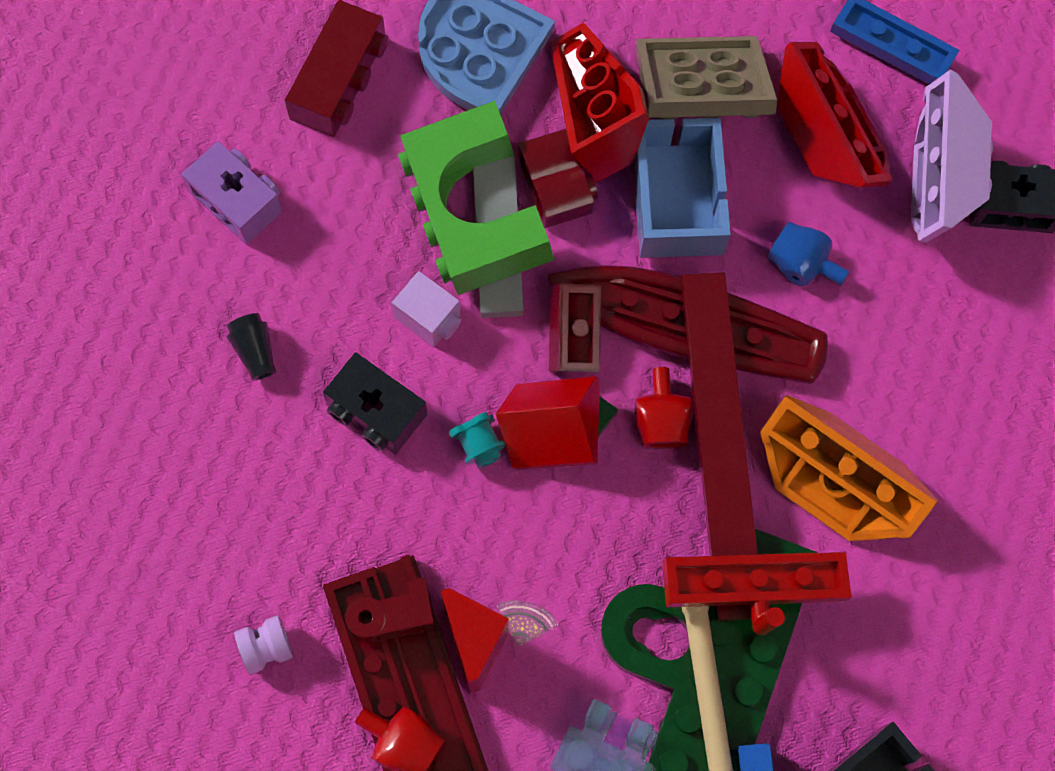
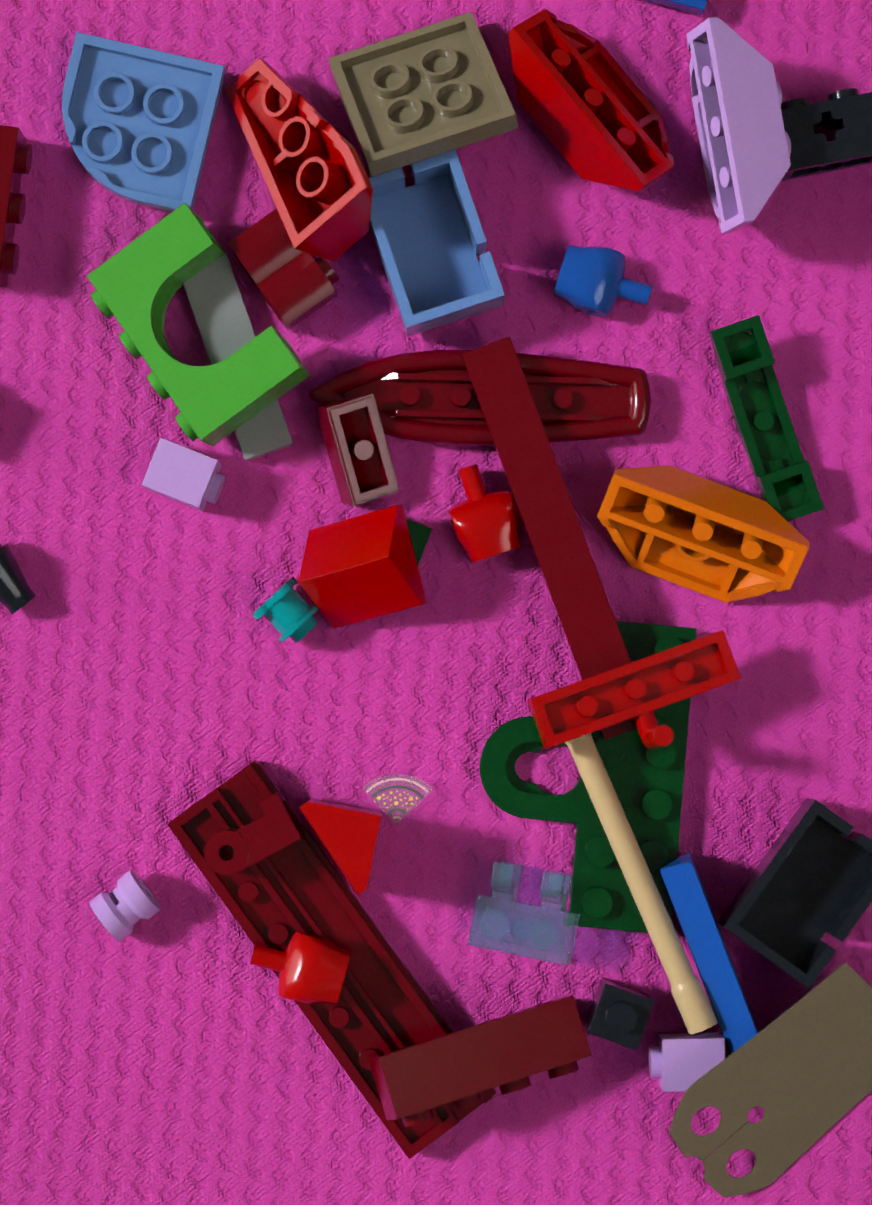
camera: 15 degrees left, 15 degrees up
(365, 383) = (136, 583): black brick -> none
(915, 397) = (763, 419): none -> dark green slope

